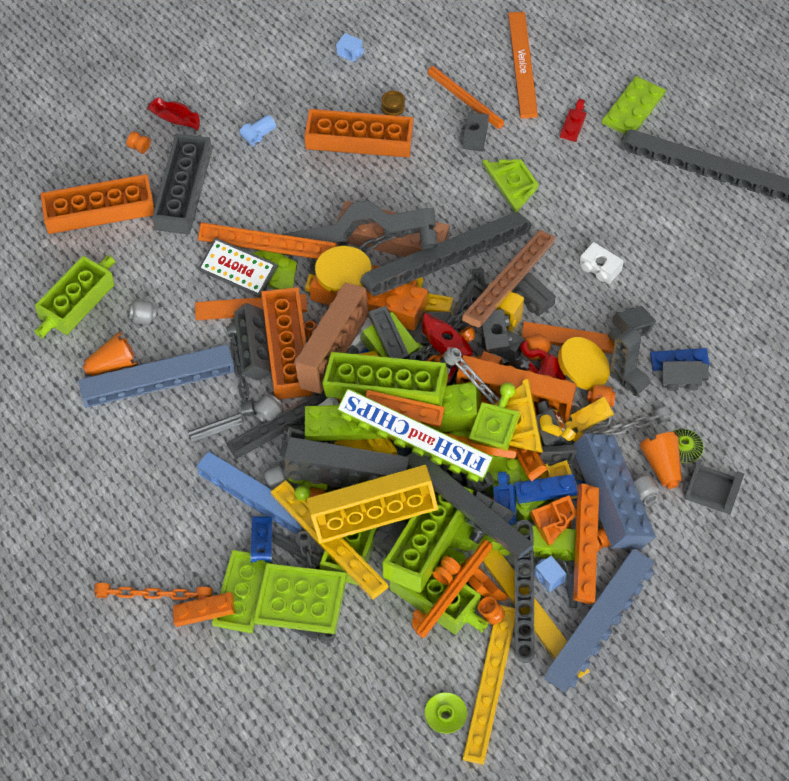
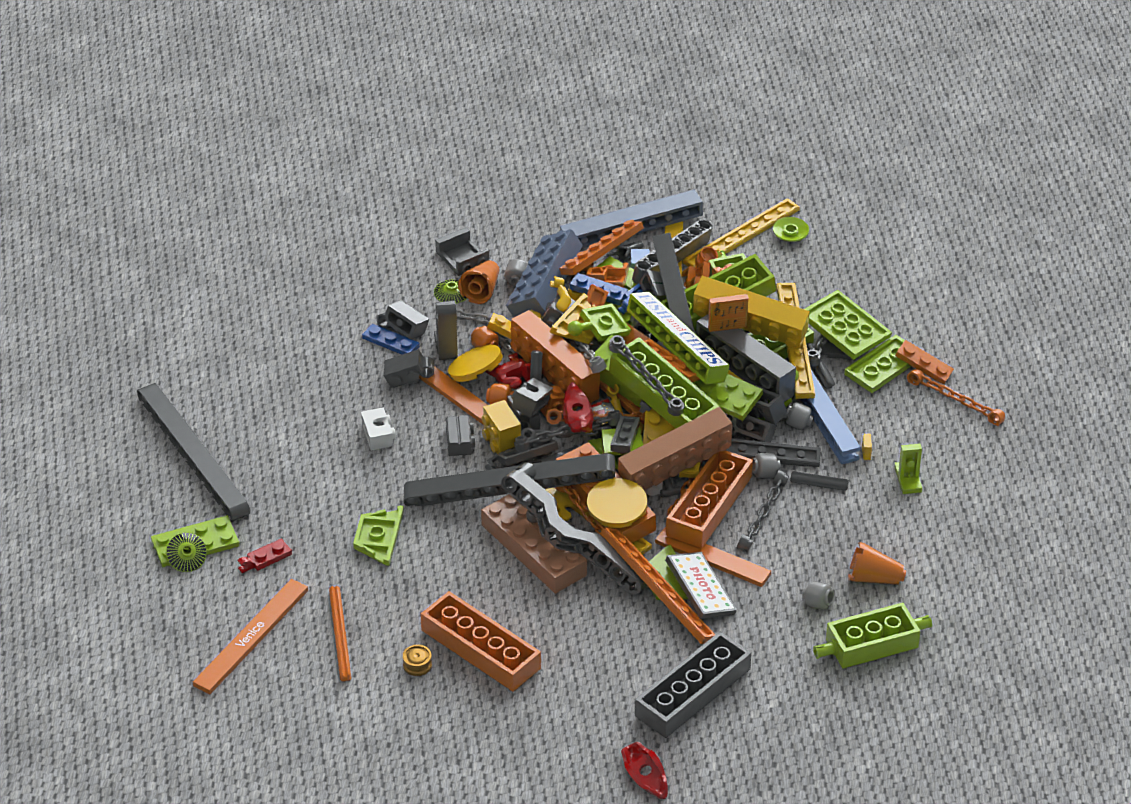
camera: 145 degrees left, 15 degrees down
(97, 204) = (792, 708): orange brick -> none
(138, 142) = (704, 756): orange wheel -> none
(141, 472) = (909, 468): none -> lime bracket
(156, 376) = (840, 536): sand blue brick -> none
(195, 480) = (866, 447): none -> yellow tile
(252, 342) = (738, 516): dark grey brick -> none
(254, 132) = (579, 705): light blue piece -> none
(261, 539) = (844, 380): blue plate -> none
(350, 47) = (405, 738): light blue brick -> none
(357, 354) = (617, 345): none -> dark grey piece
(376, 456) = (728, 312): none -> orange tile
(453, 589) = (696, 274): orange axle -> none
(475, 131) = (365, 596): dark grey brick -> none
(508, 279) = (479, 423): nougat plate -> none
(626, 88) = (182, 561): none -> dish

